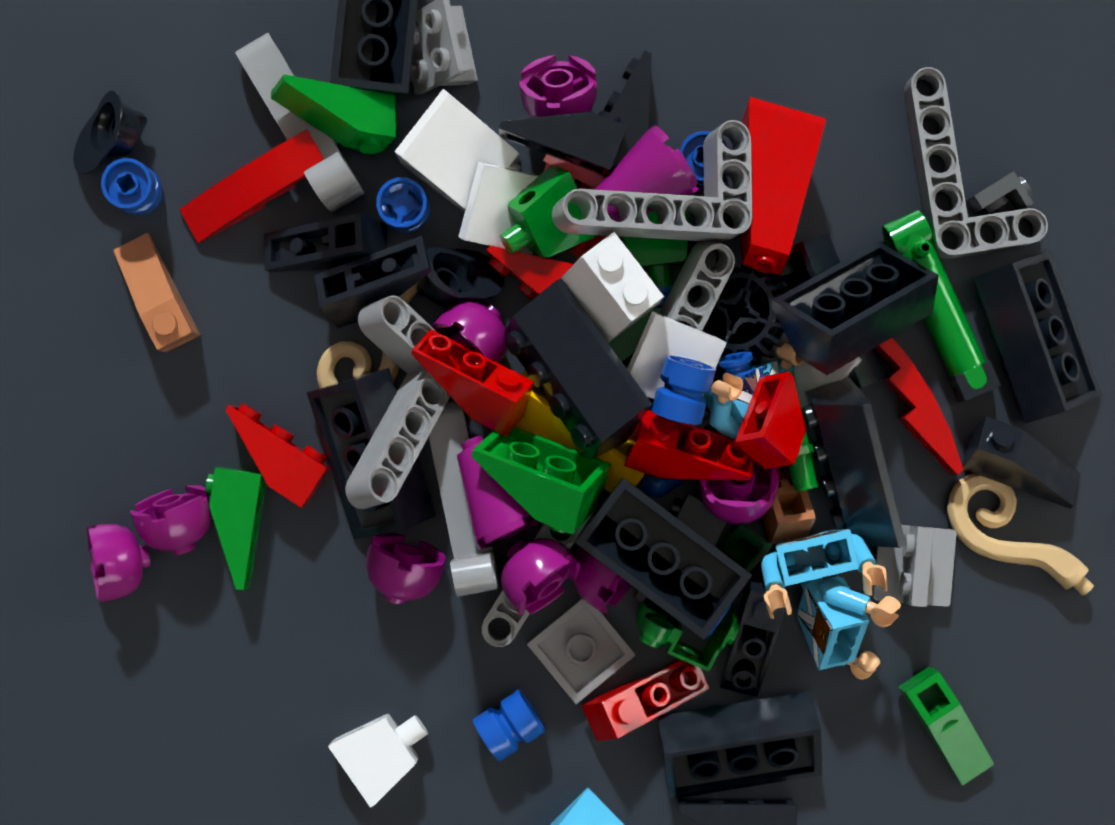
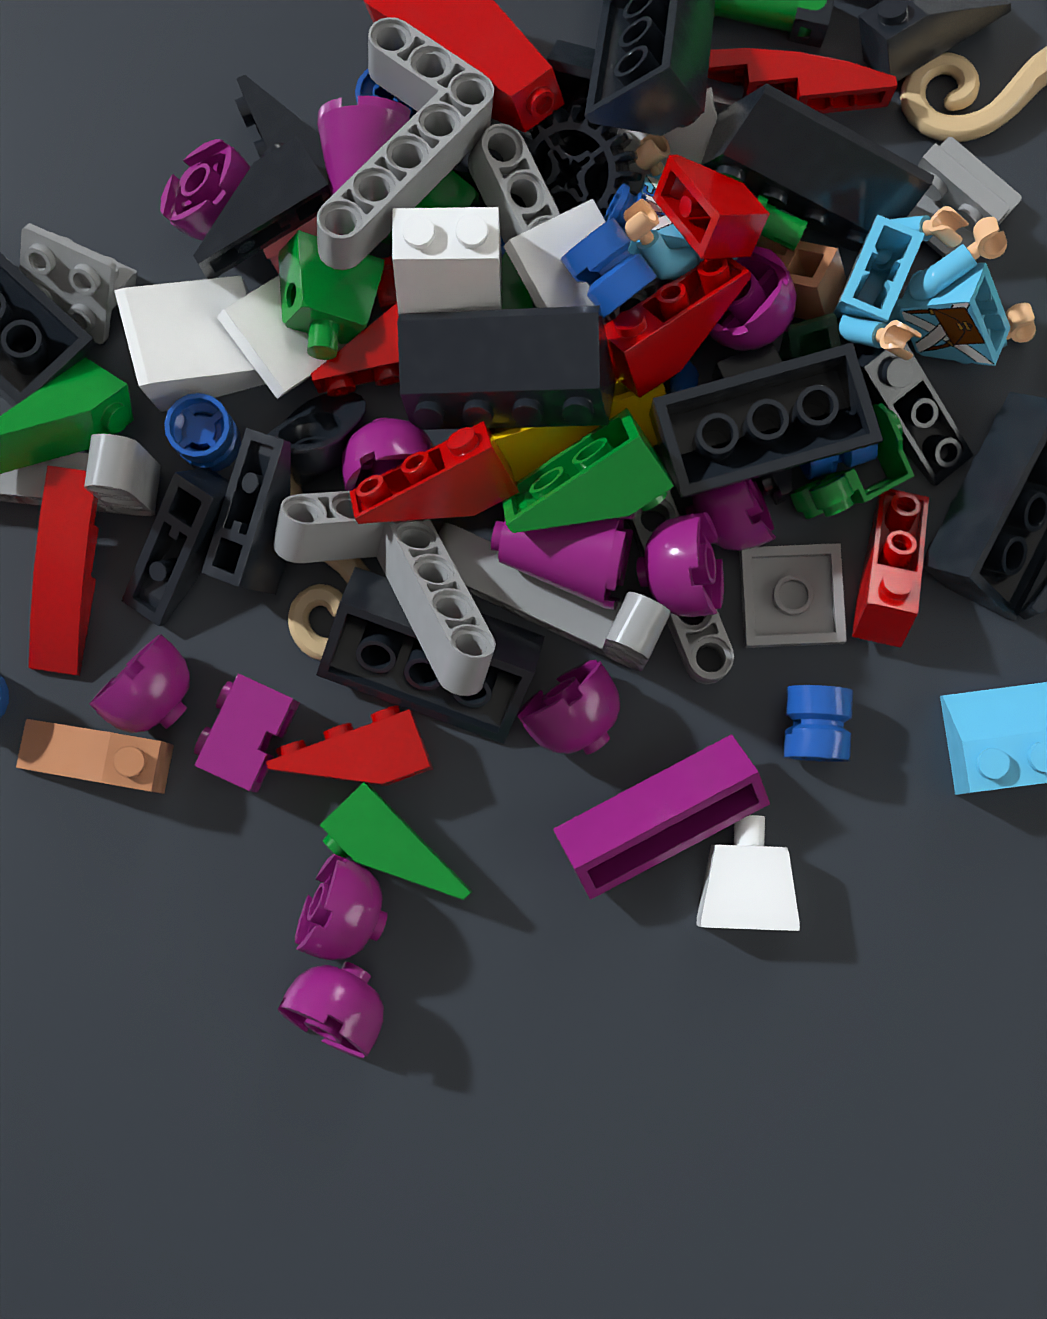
camera: 50 degrees left, 5 degrees down
(217, 296) = (146, 689): none -> magenta cylinder
(250, 372) = (243, 732): none -> magenta brick
(378, 671) = (662, 816): none -> magenta brick

